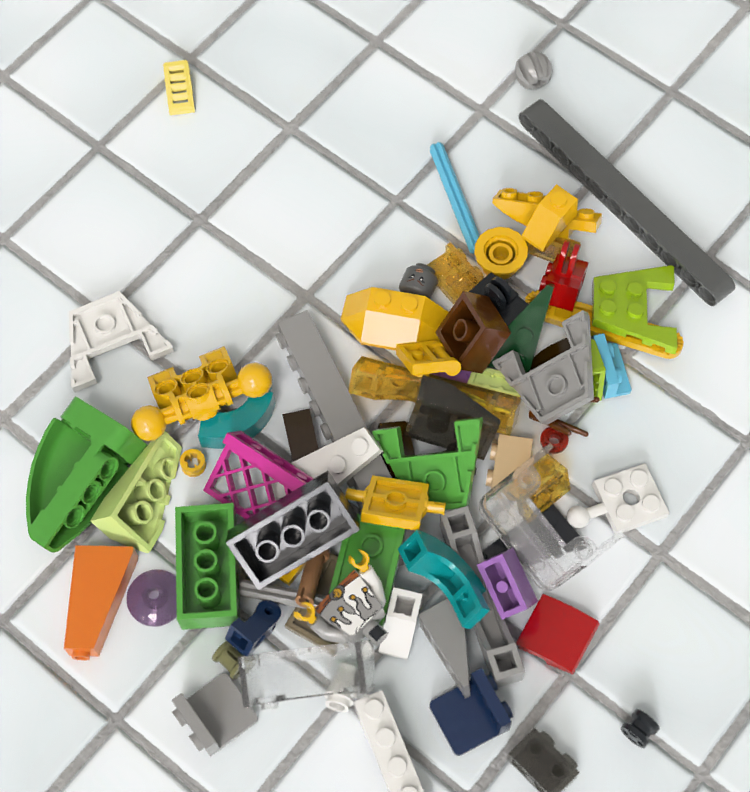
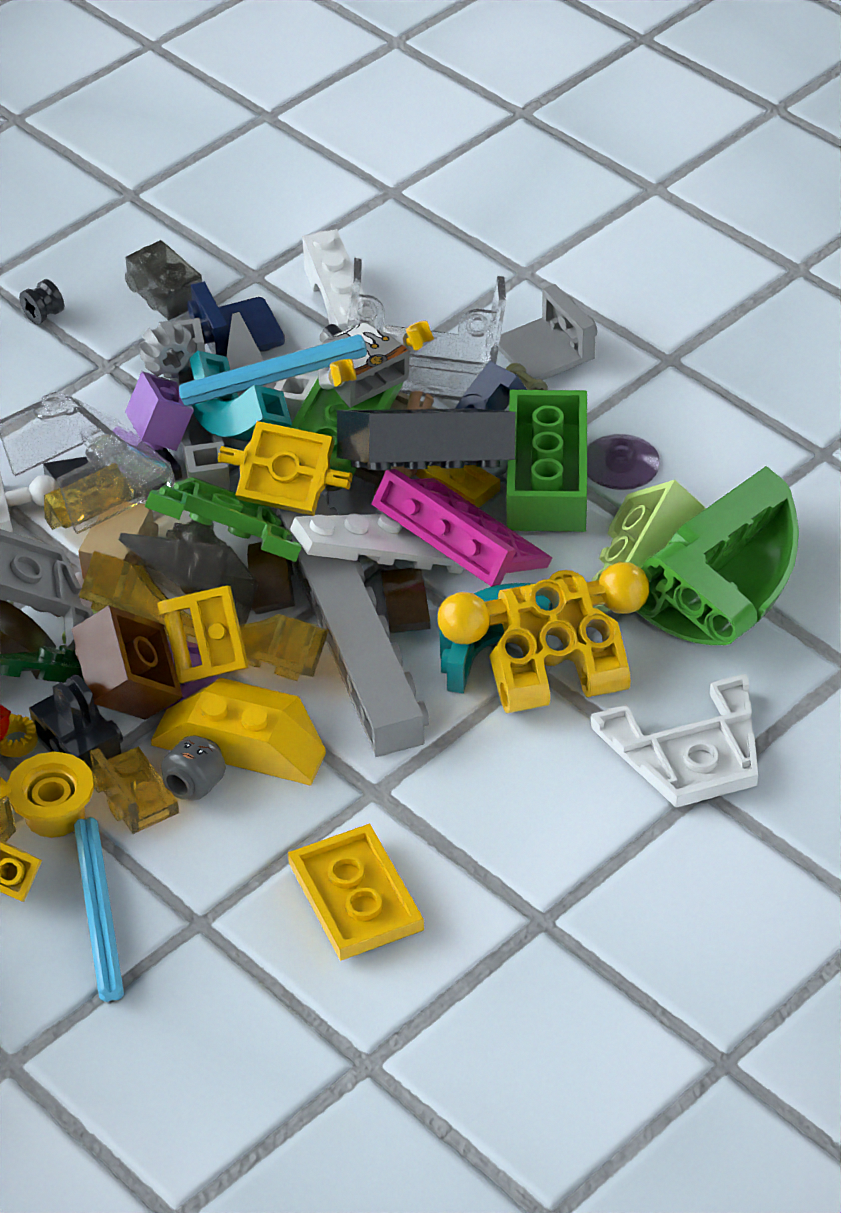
camera: 175 degrees left, 20 degrees down
(96, 593) = (698, 446): orange slope -> none
(177, 72) = (578, 1174): light yellow slope -> none
(308, 217) = (355, 891): none -> yellow plate
(415, 575) = (272, 370): none -> medium azure axle
(509, 620) = (161, 339): none -> light grey piece
(557, 633) = (105, 383): red slope -> none

